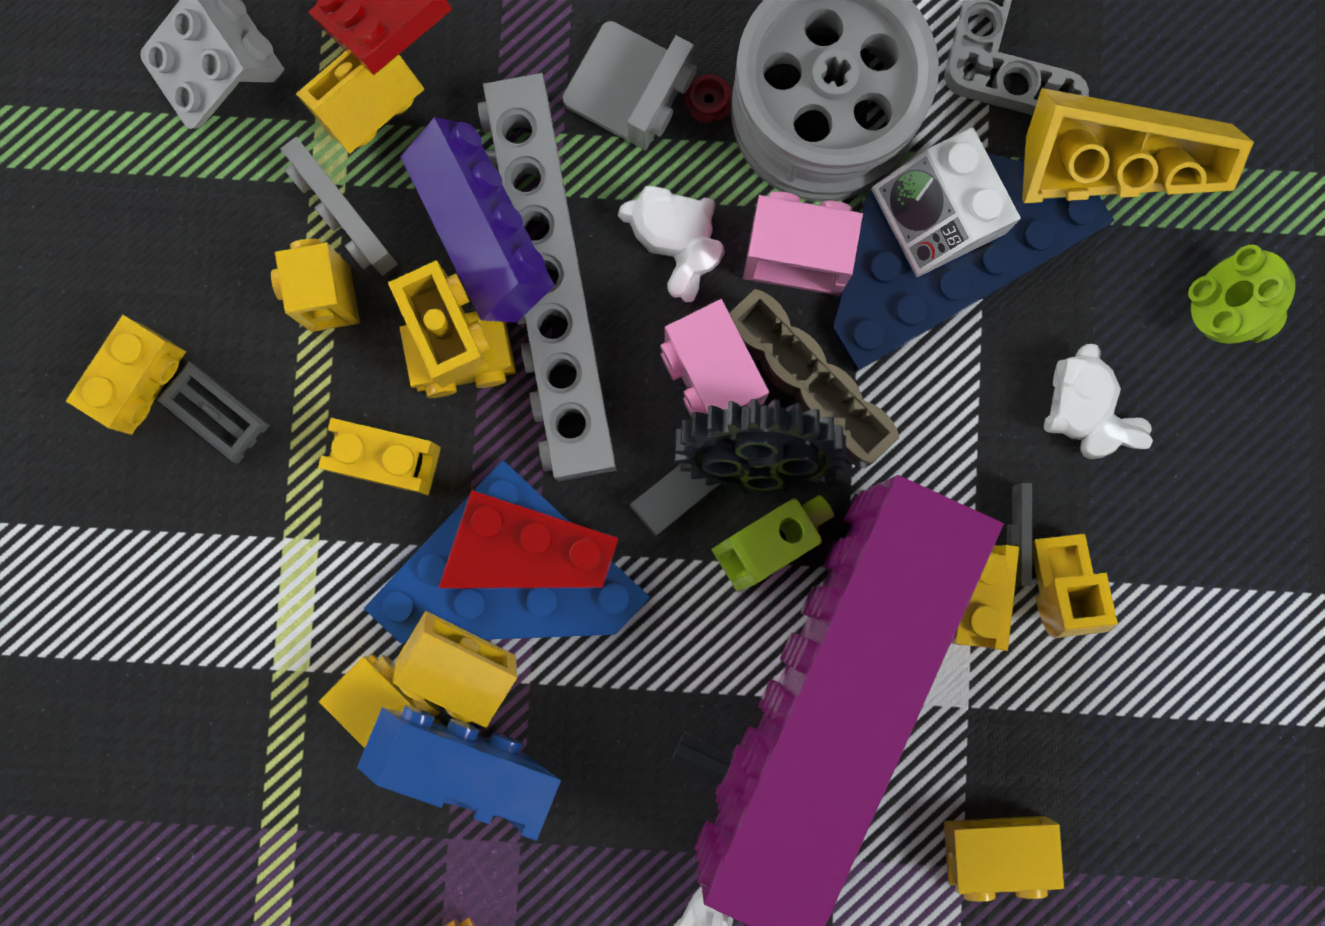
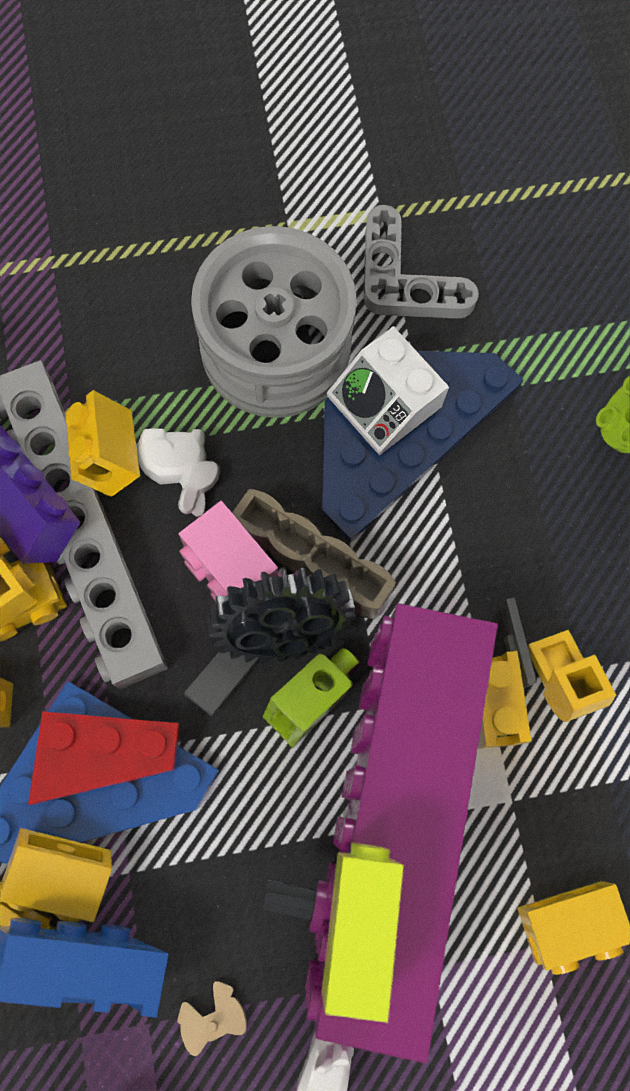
camera: 20 degrees left, 10 degrees down
(595, 194) = (102, 444): none -> yellow brick
(605, 856) = (227, 1018): none -> tan piece
(630, 83) = (116, 356): light grey bracket -> none
(712, 86) = (182, 345): dark red plate -> none
(778, 814) = (362, 934): none -> neon yellow brick
(802, 243) = (279, 447): bright pink piece -> none
(1086, 405) = (540, 526): white animal -> none
(1109, 147) = (503, 326): yellow wedge -> none

